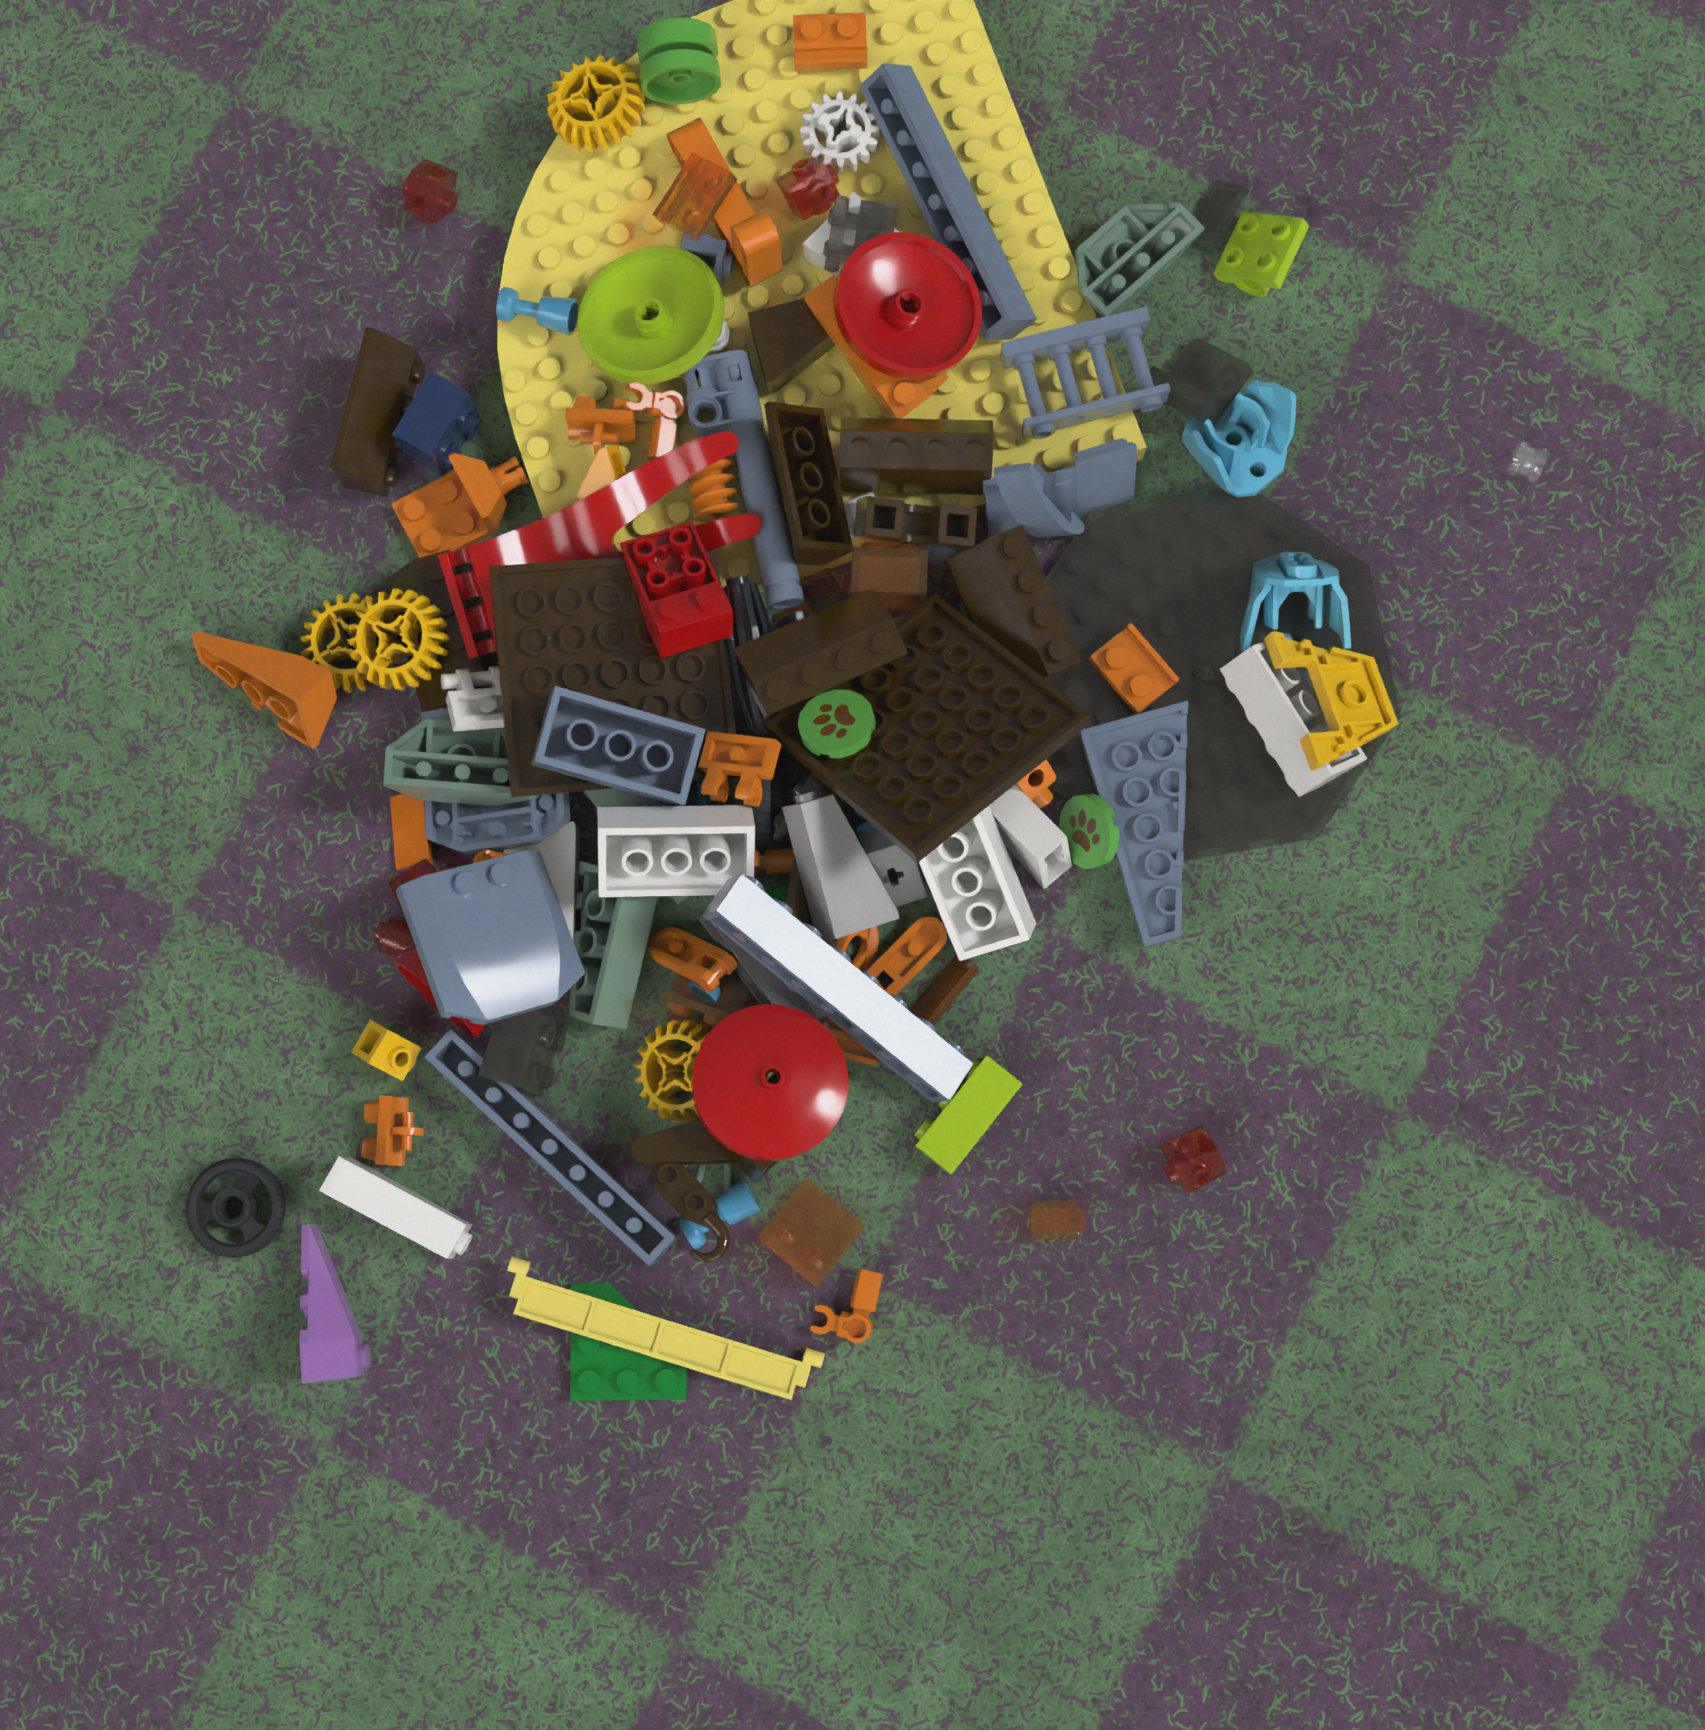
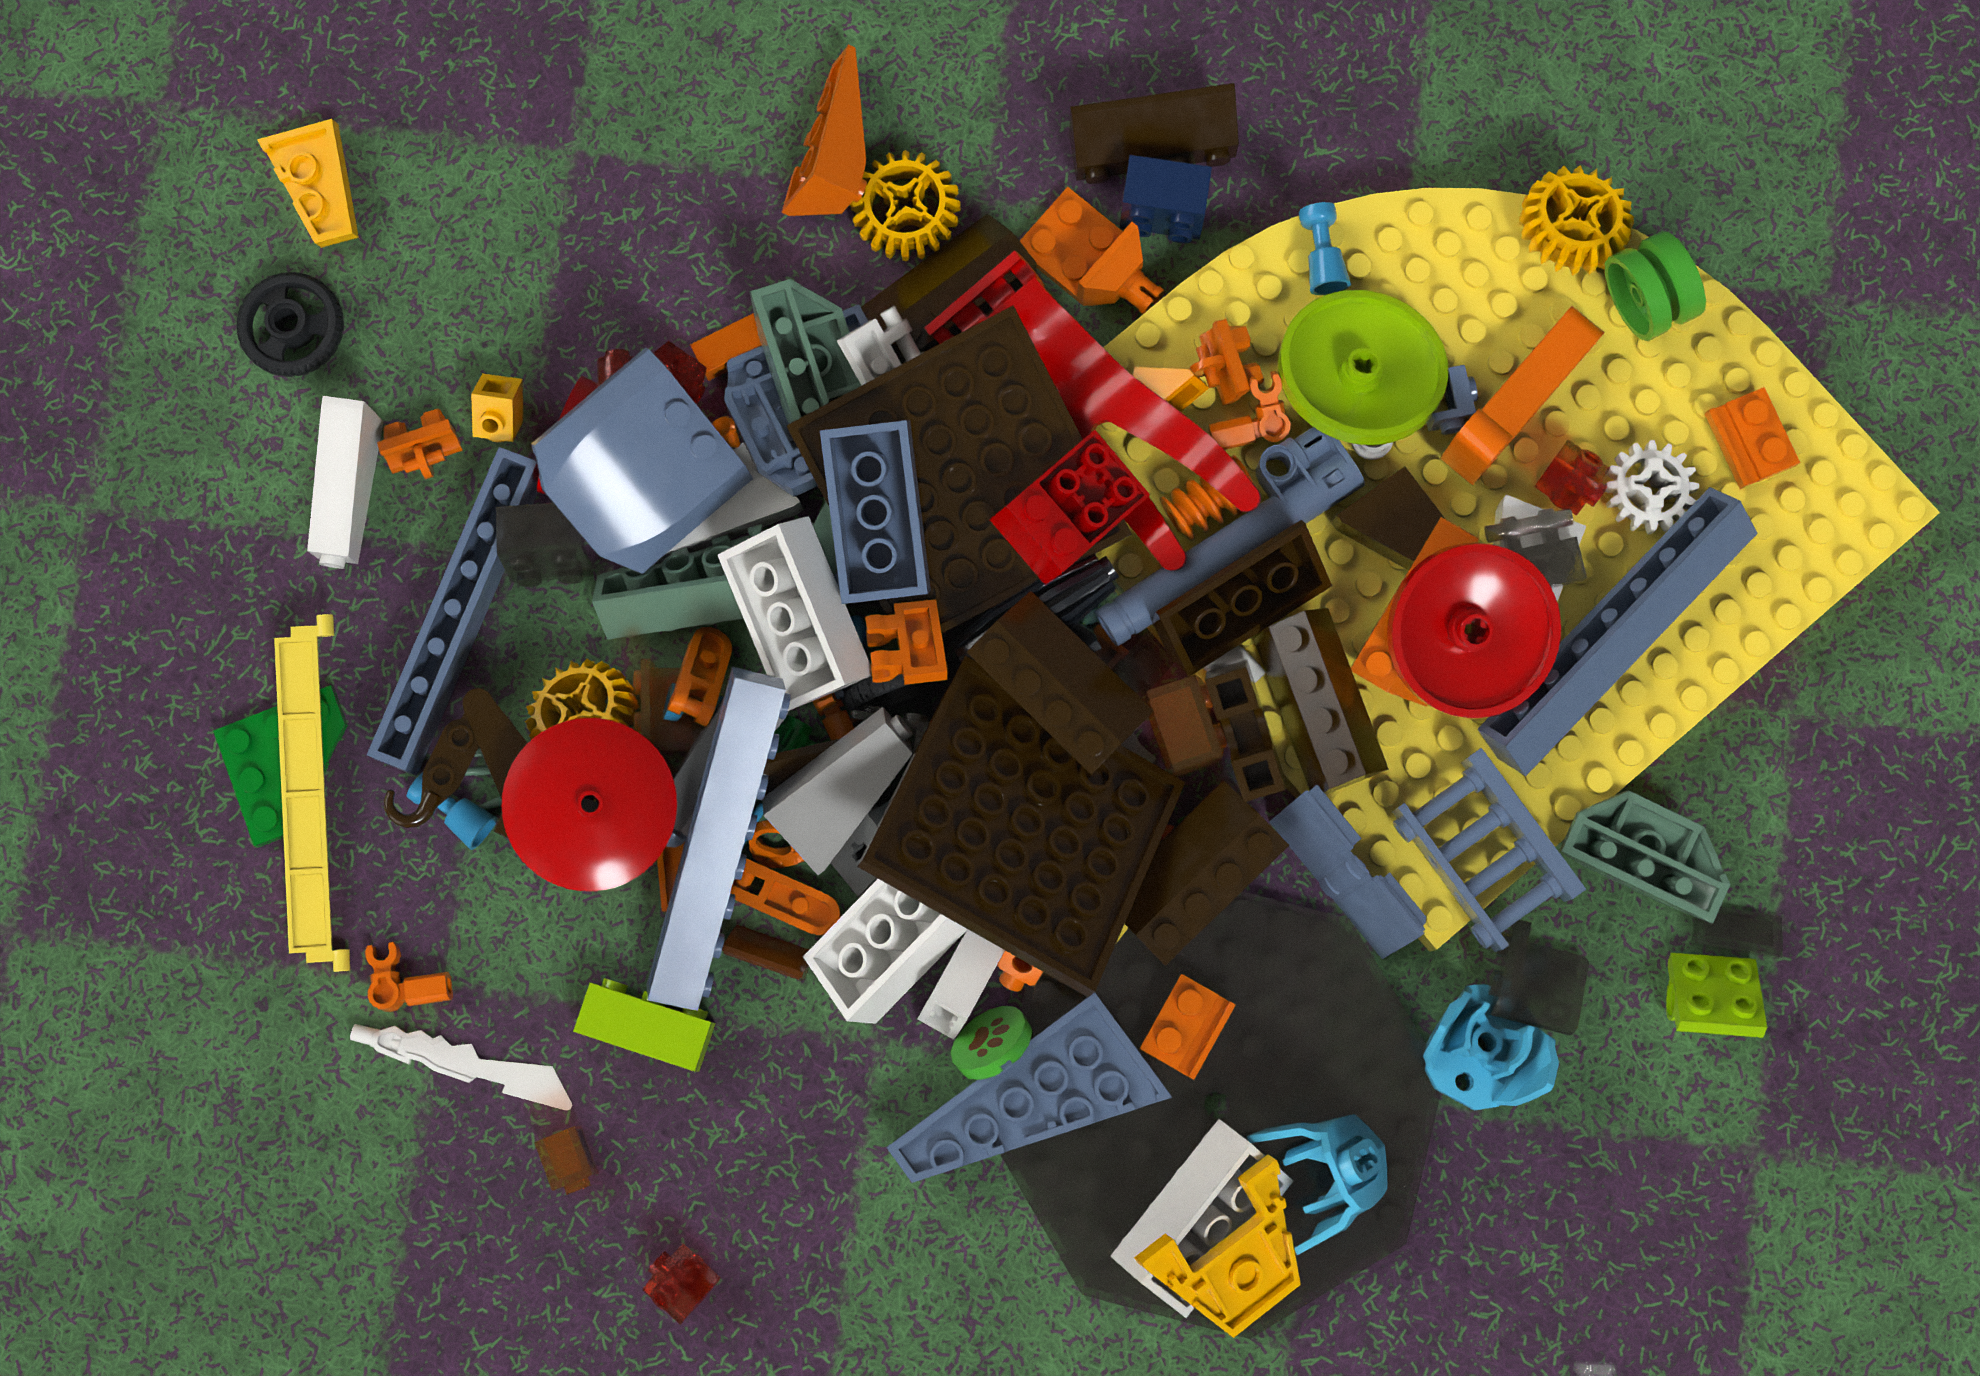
camera: 70 degrees right, 0 degrees up
(110, 1140) = (316, 177): none -> yellow wing
(332, 1340) = (194, 469): medium lavender wedge -> none
(408, 626) = (930, 266): yellow gear -> none
(430, 191) = (1417, 91): clear red brick -> none
(695, 196) = (1508, 361): clear orange plate -> none
(811, 1232) = (463, 908): clear orange bracket -> none
(836, 723) = (989, 728): bright green tile -> none
(938, 1284) = (461, 1062): none -> white sword
(1024, 496) = (1314, 834): sand blue slope -> none

